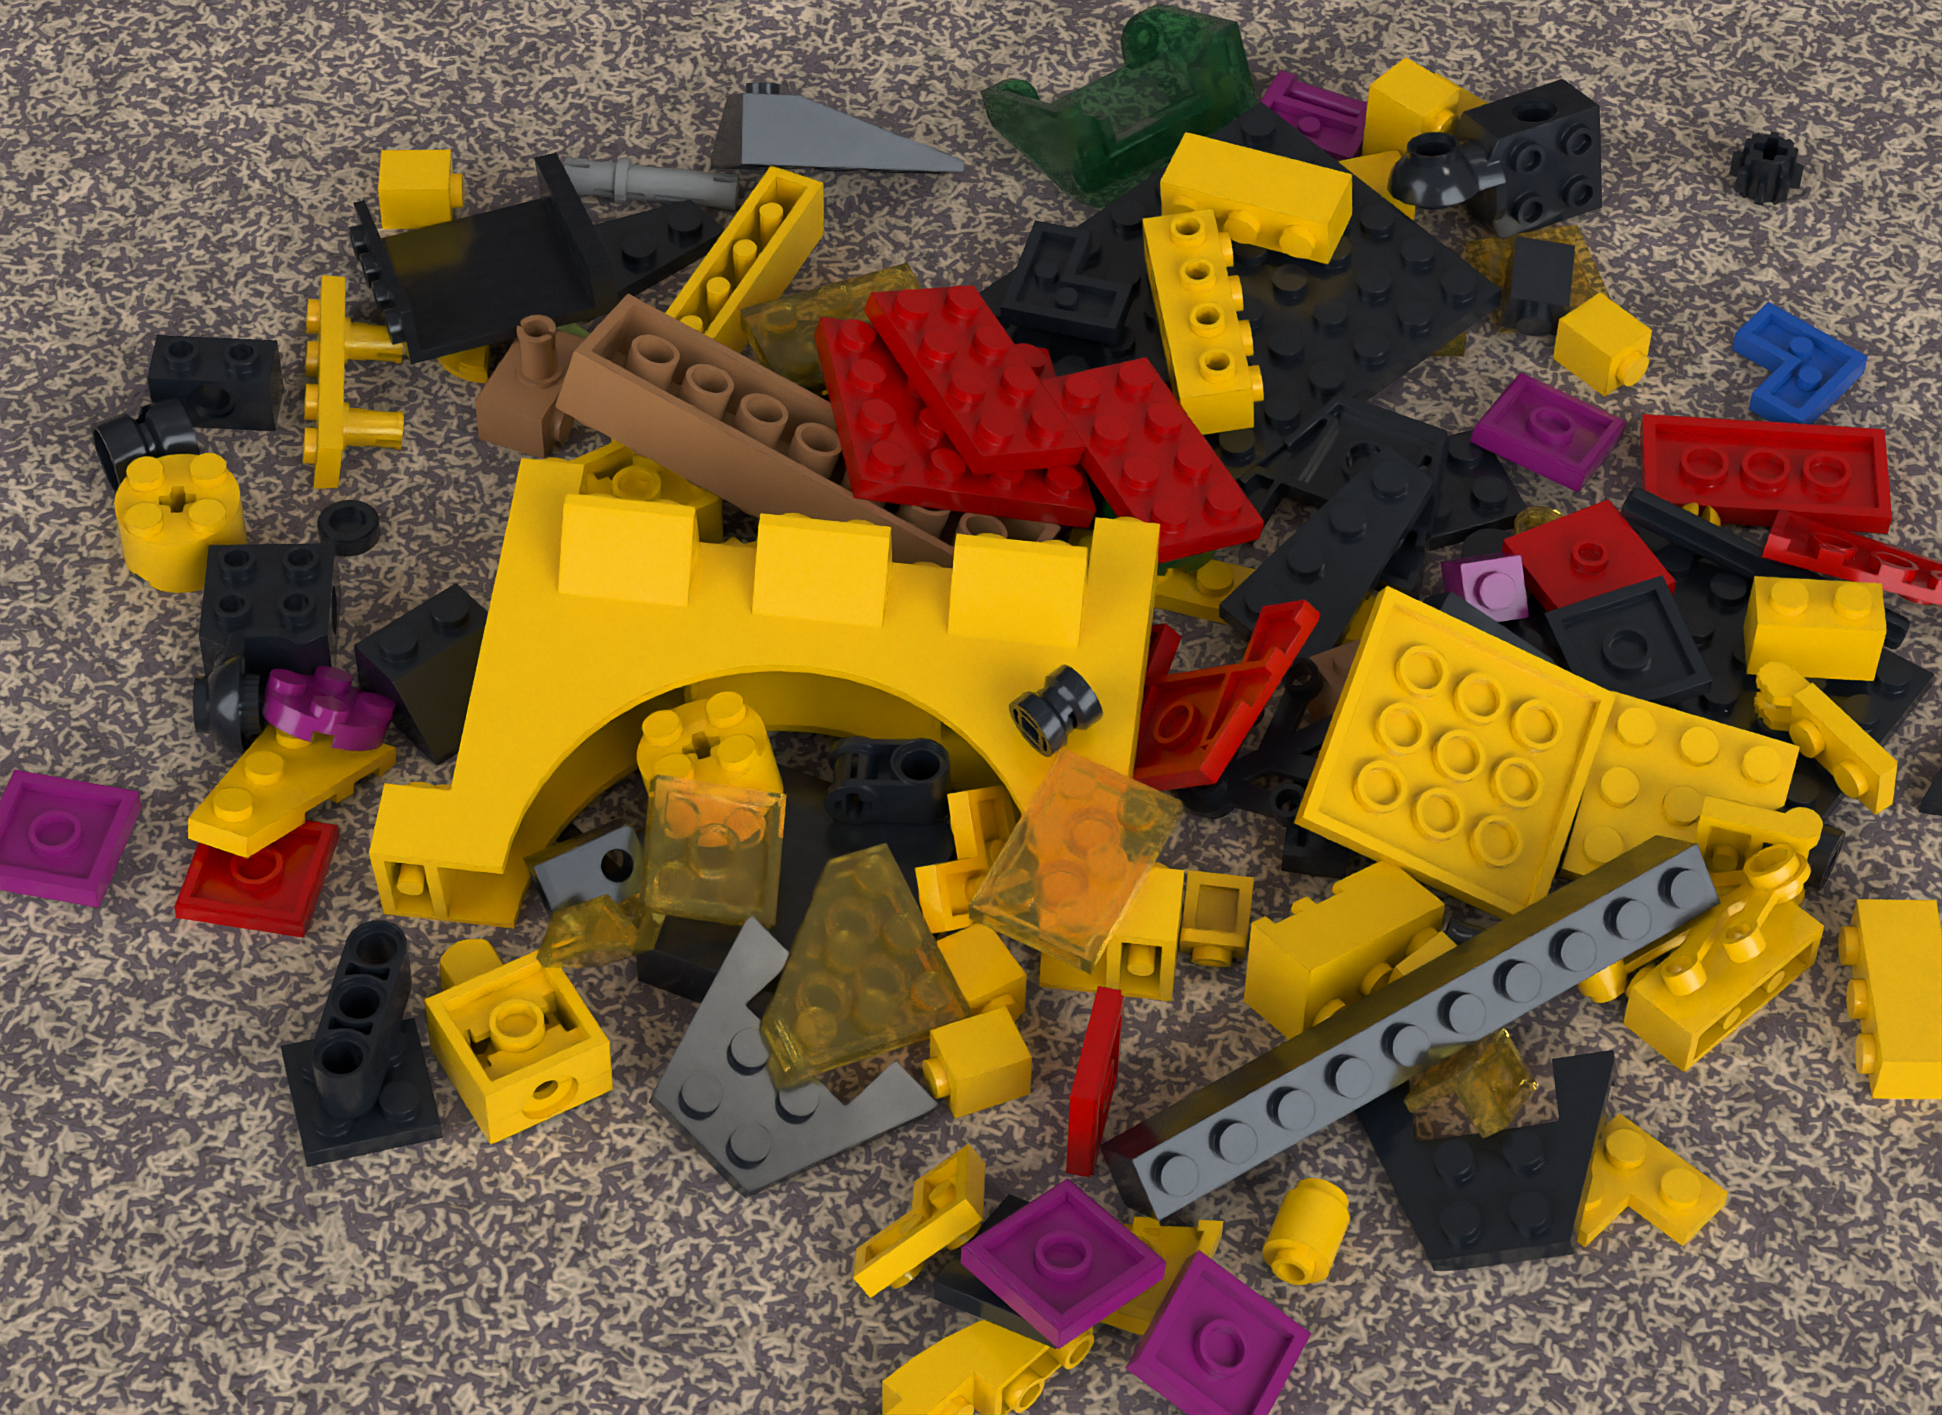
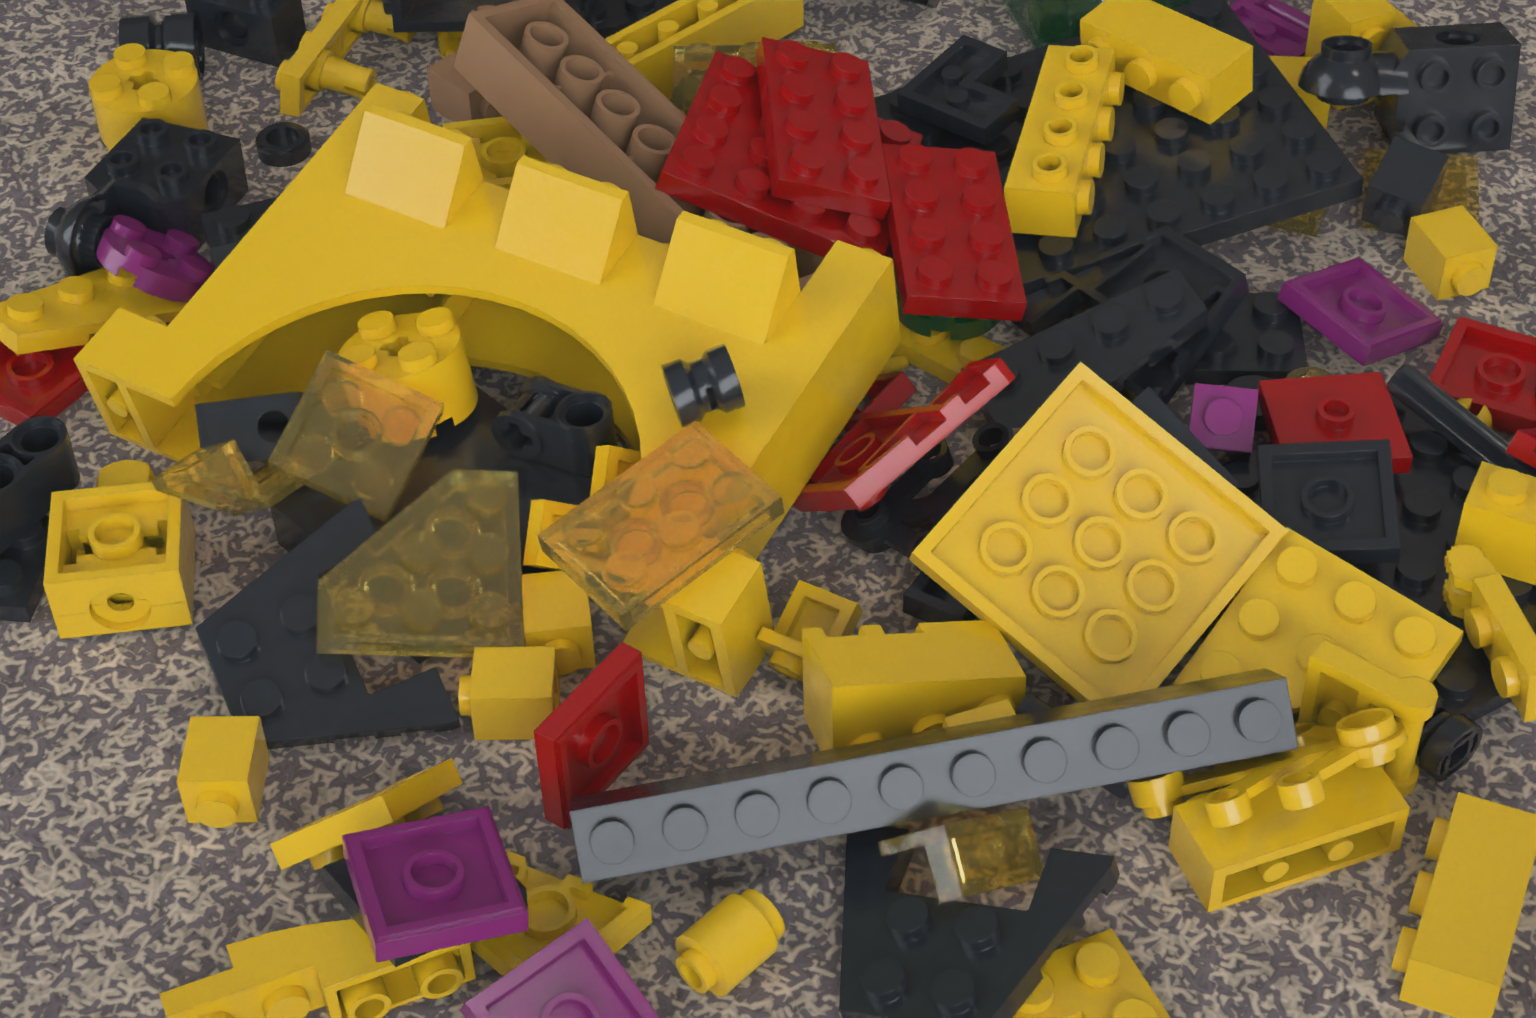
camera: 25 degrees right, 5 degrees down
(754, 1223) = (223, 770): none -> yellow brick

